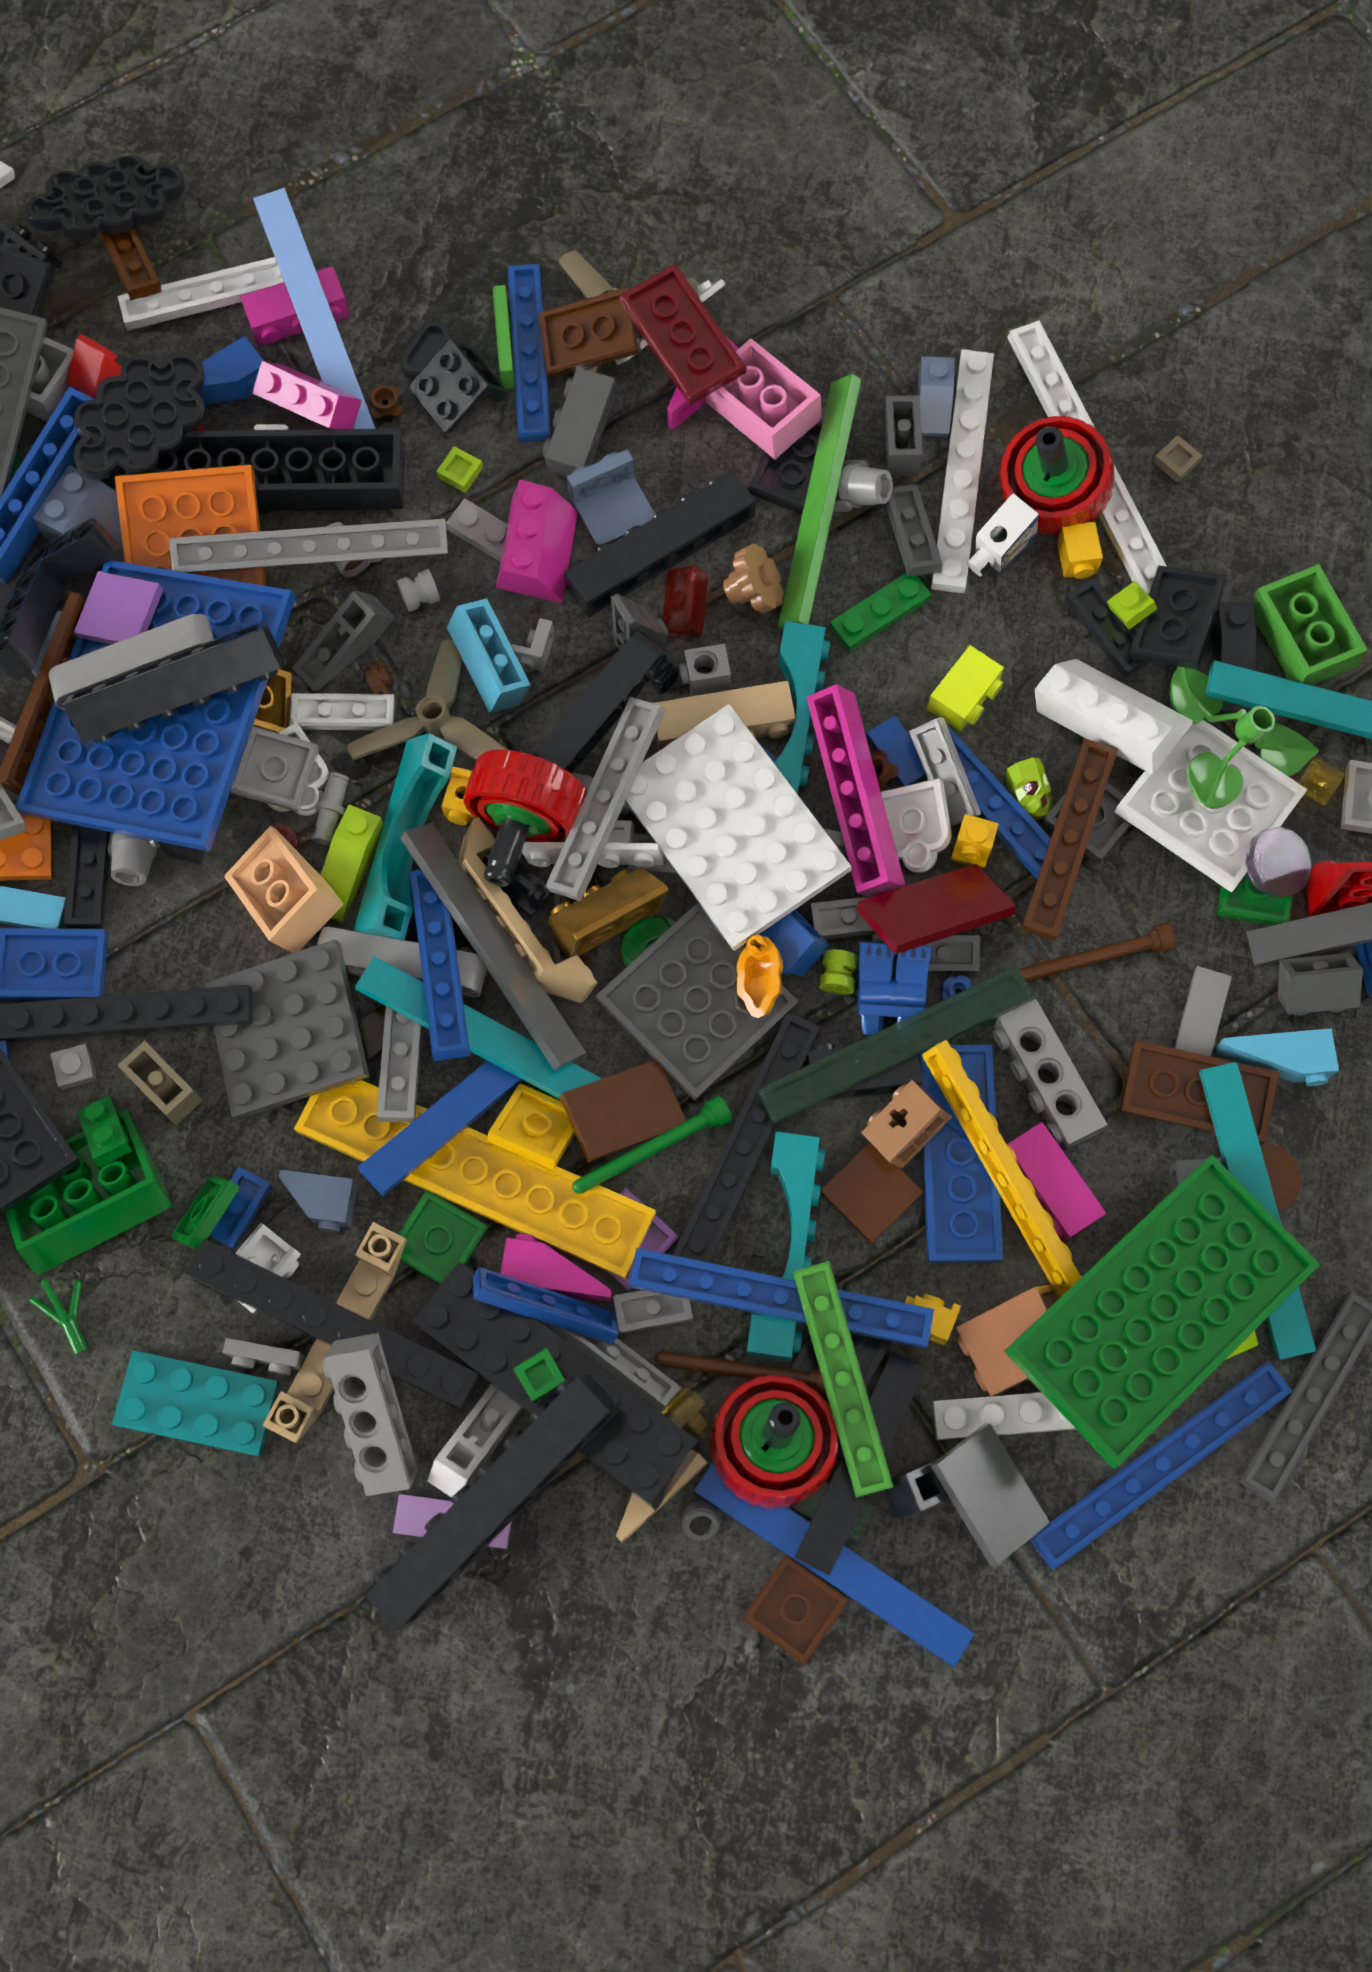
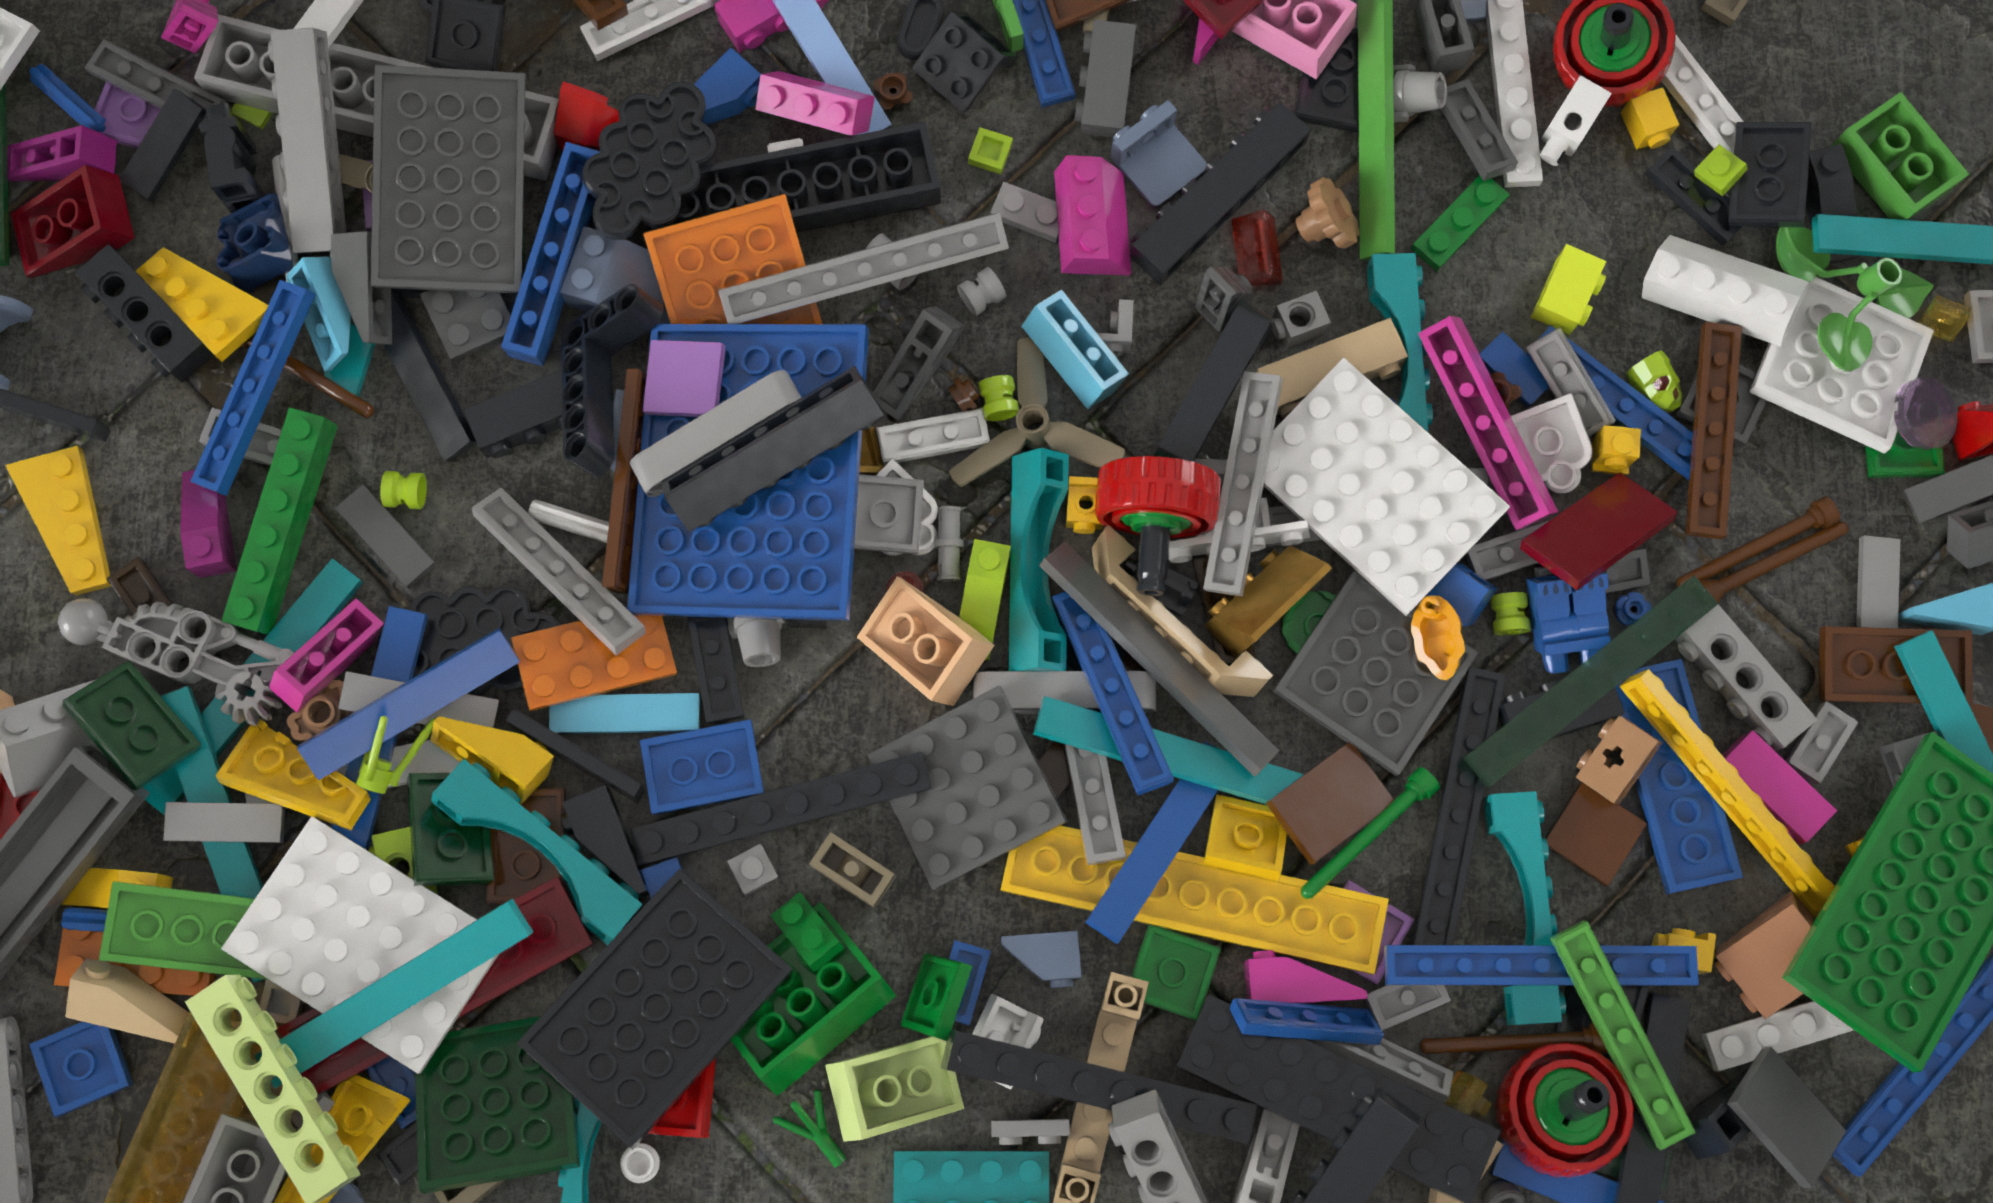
camera: 15 degrees left, 5 degrees up
(144, 1291) = (892, 1088): none -> yellowish green slope
(409, 686) = (998, 398): none -> lime wheel
(540, 1376) = (1330, 1099): green plate -> none
(1041, 988) = (1719, 588): none -> reddish brown piece
(1110, 1150) = (1821, 743): none -> light grey plate

